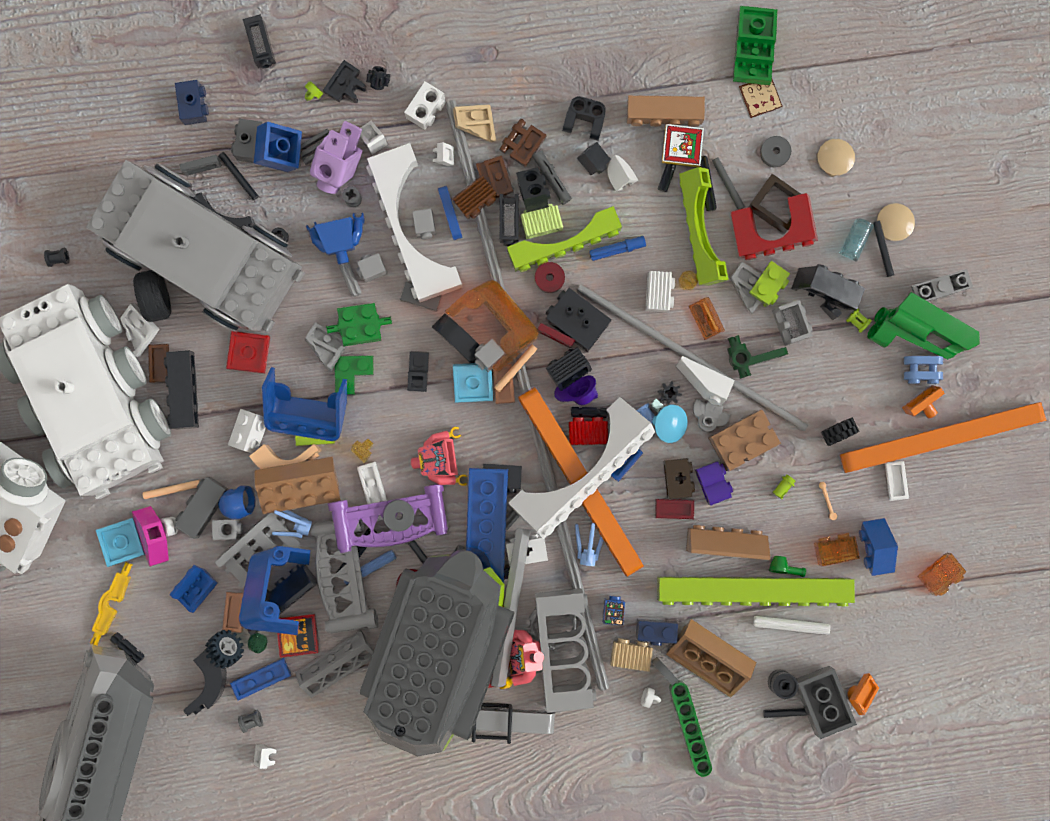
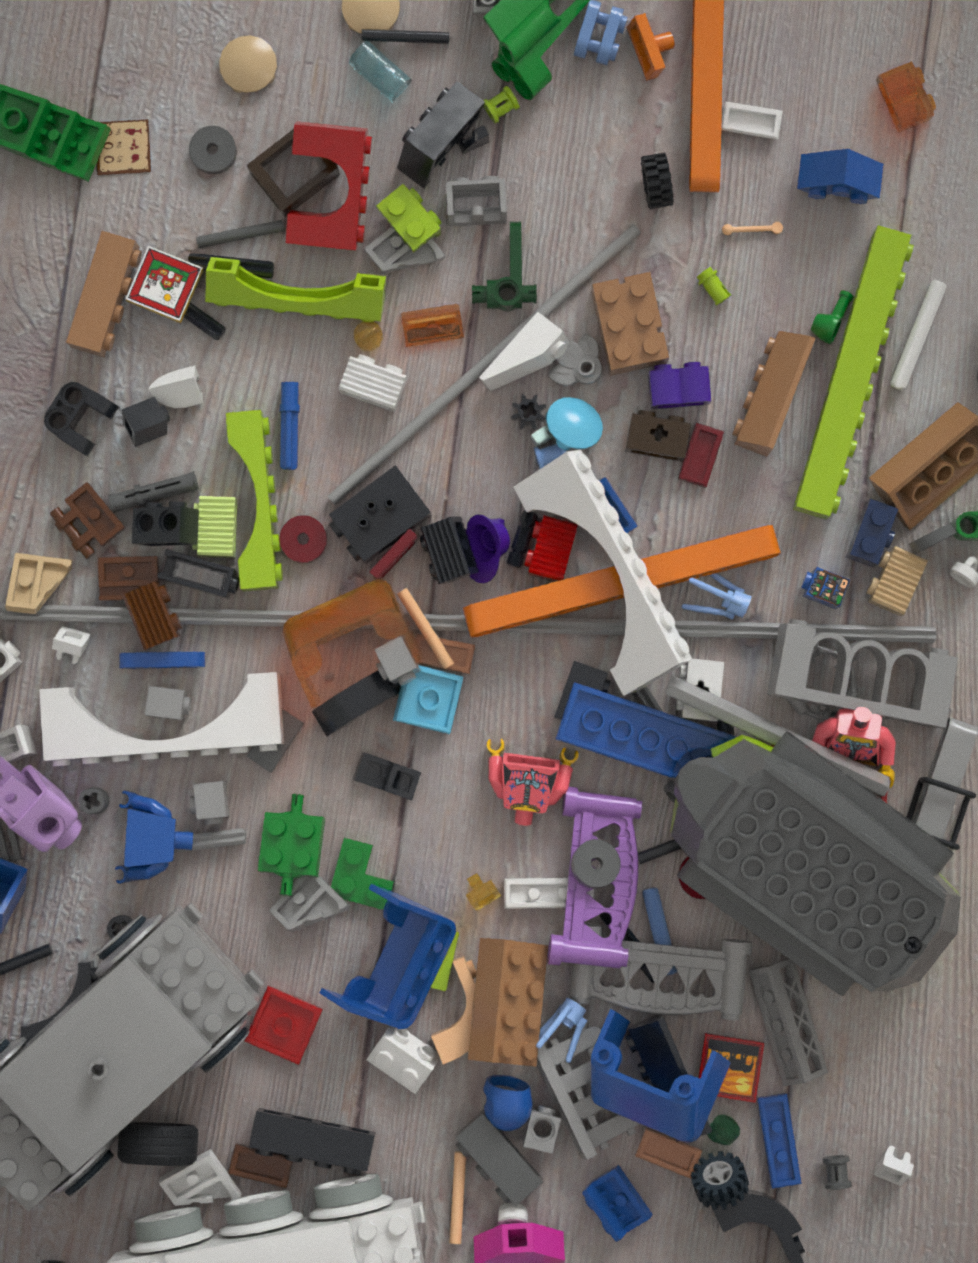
camera: 70 degrees left, 0 degrees up
(836, 550) = (827, 237): clear orange brick -> none

